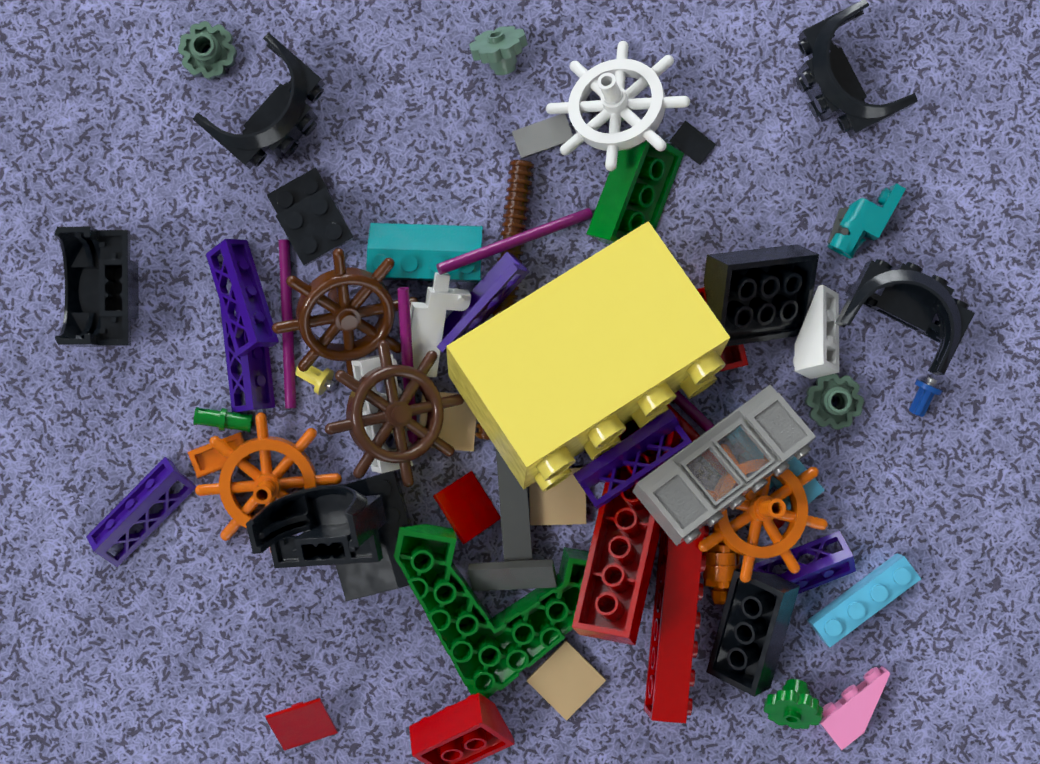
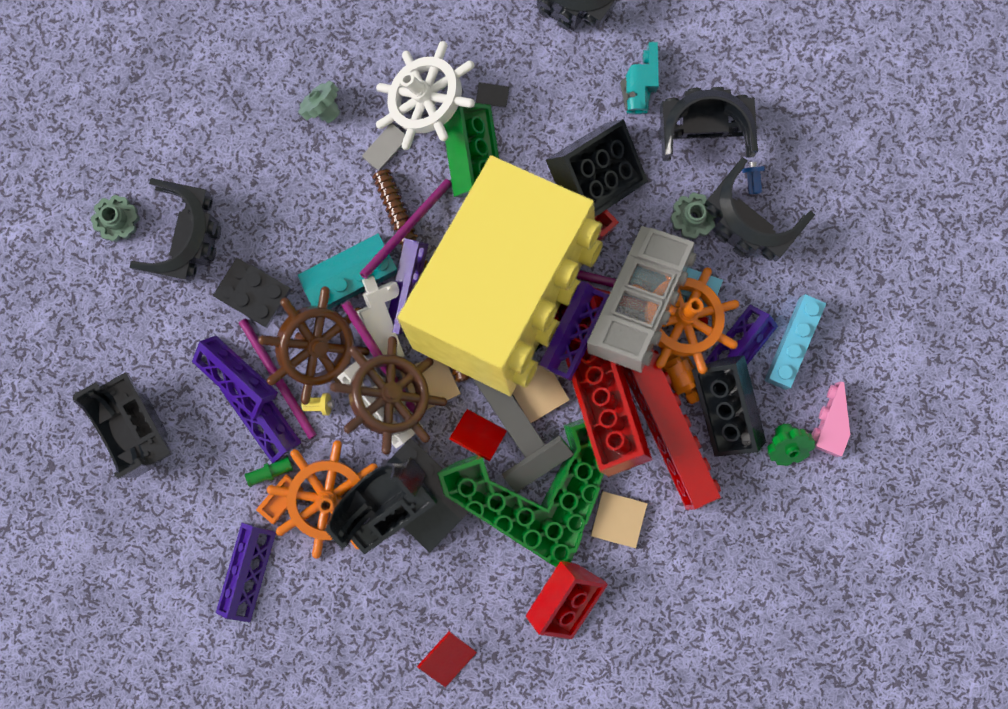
camera: 25 degrees left, 5 degrees down
(819, 337) = (657, 178): white slope -> none
(882, 446) = (745, 227): none -> black piece

